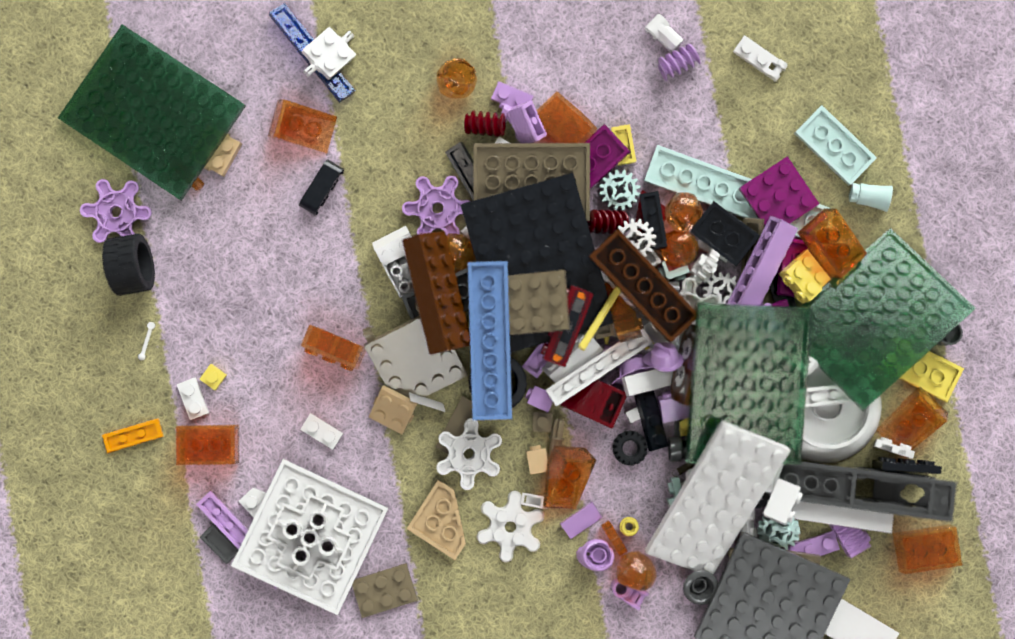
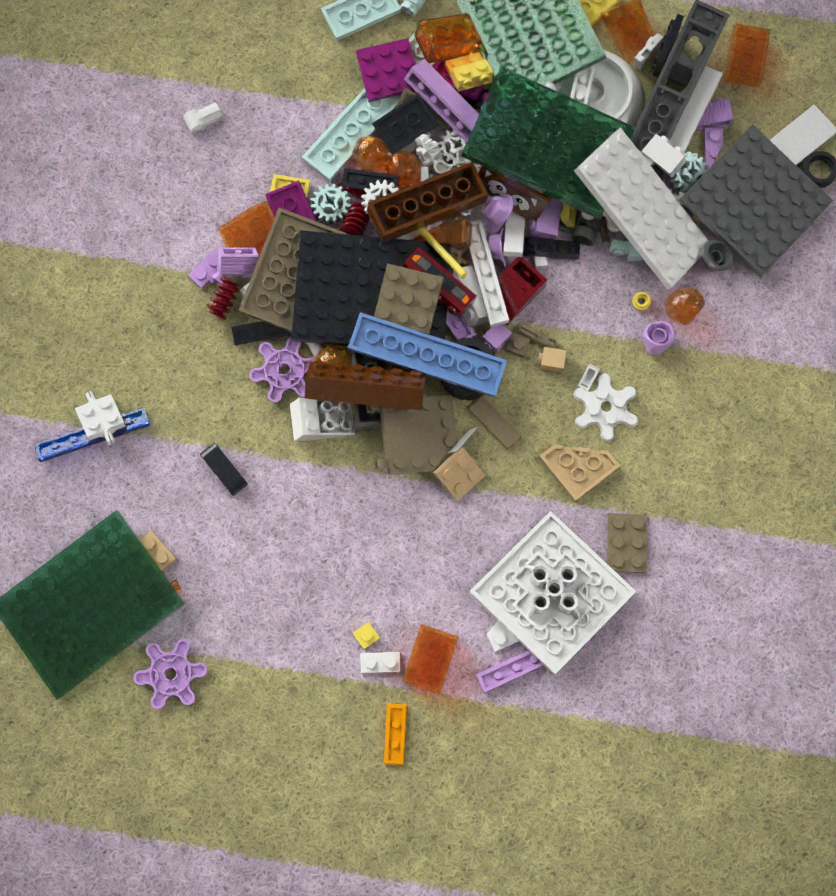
camera: 70 degrees left, 10 degrees down
(128, 264) = (228, 672): black tyre -> none
(150, 325) = (294, 679): white hinge -> none
(219, 543) = (529, 684): dark grey tile -> none
(302, 126) = (157, 467): clear orange slope -> none
(321, 431) = (455, 550): white plate -> none
(333, 348) = (381, 506): clear orange brick -> none
(456, 78) = (171, 309): clear orange piece -> none
(478, 462) = (525, 407): white plate -> none
(567, 476) = (576, 336): clear orange slope -> none
(580, 520) = (621, 341): lavender slope -> none
(614, 538) = (647, 316): clear orange beam -> none
(630, 596) = (704, 319): lavender piece -> none
(641, 448) = (573, 265): black tyre -> none
(678, 60) = (233, 113): lavender piece -> none
(760, 58) = (258, 46): white plate -> none

